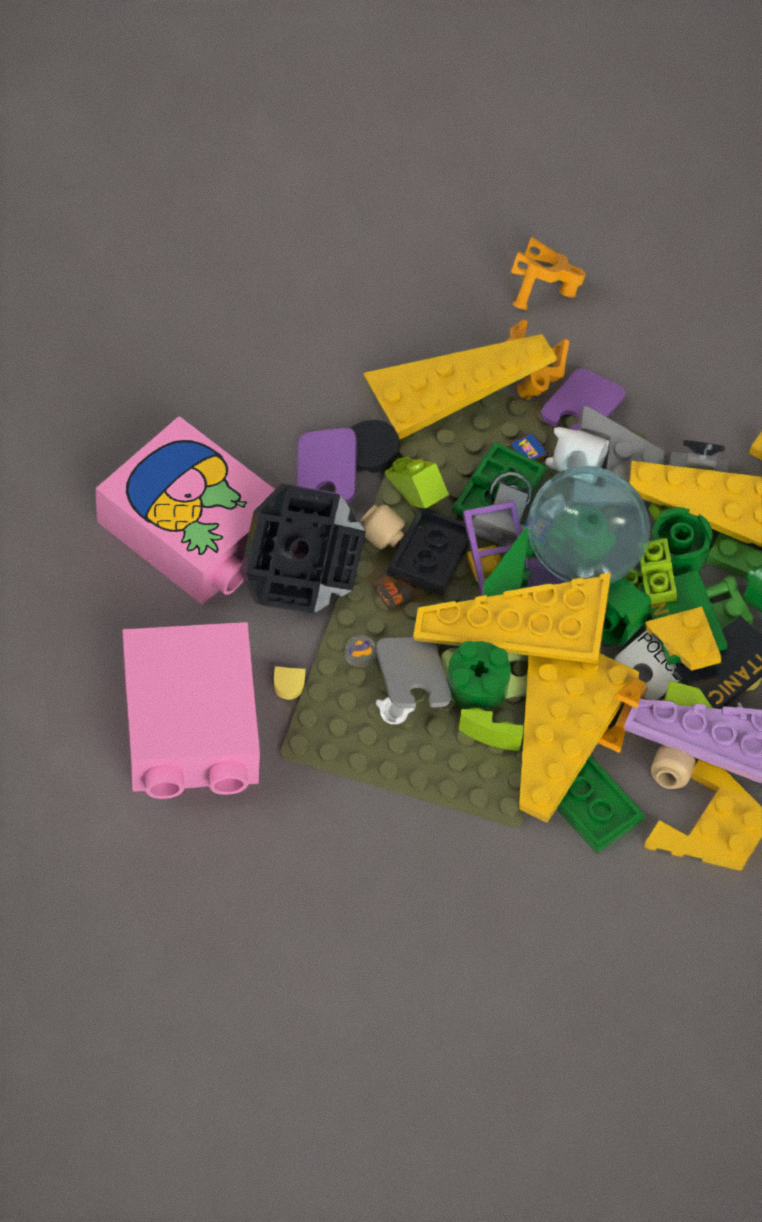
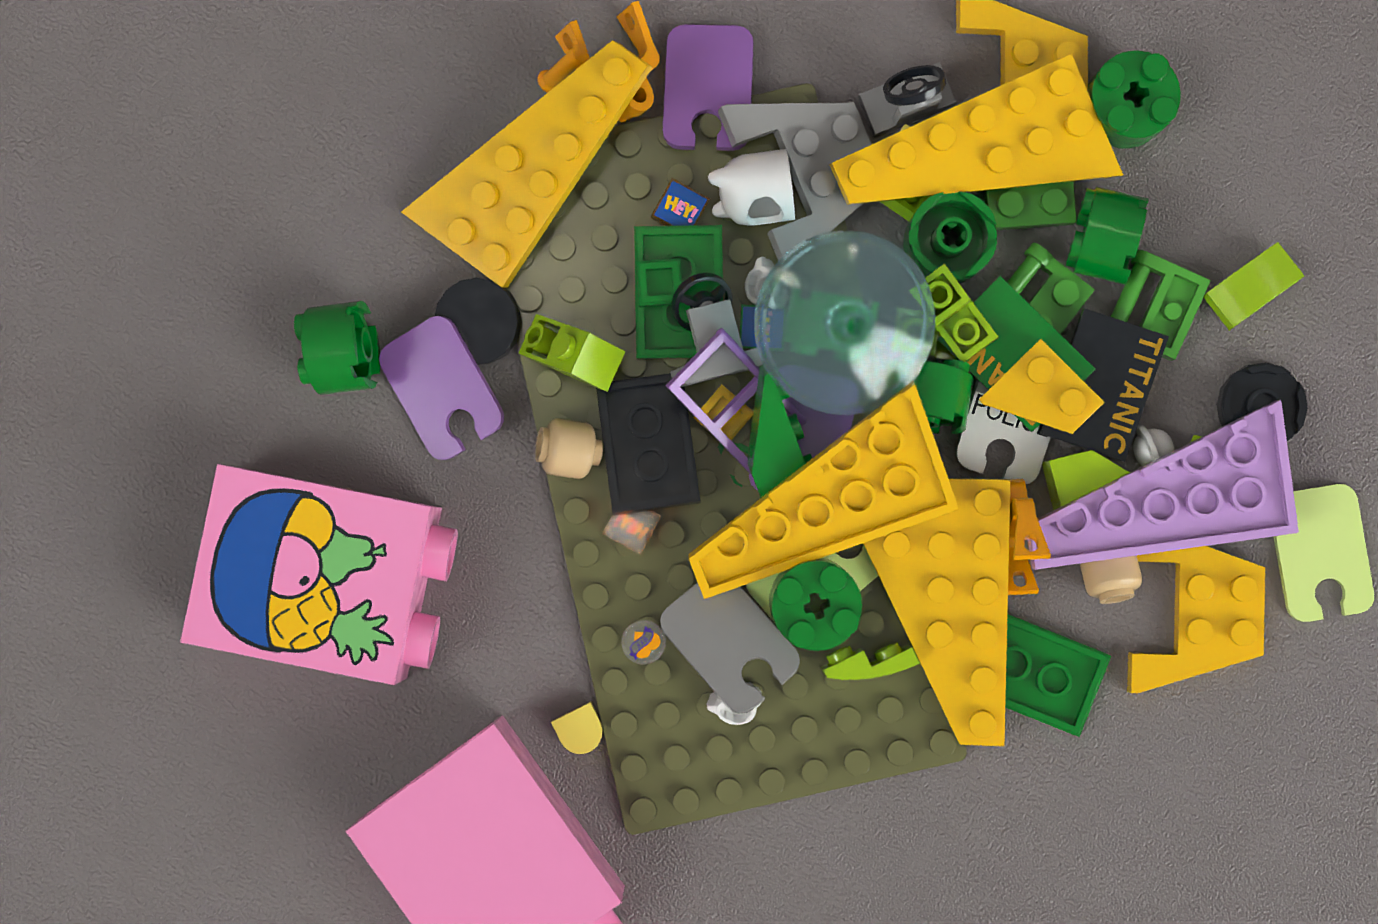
camera: 25 degrees left, 30 degrees up
(282, 411) = (337, 348): none -> green brick
(325, 555) = (493, 567): black piece -> none

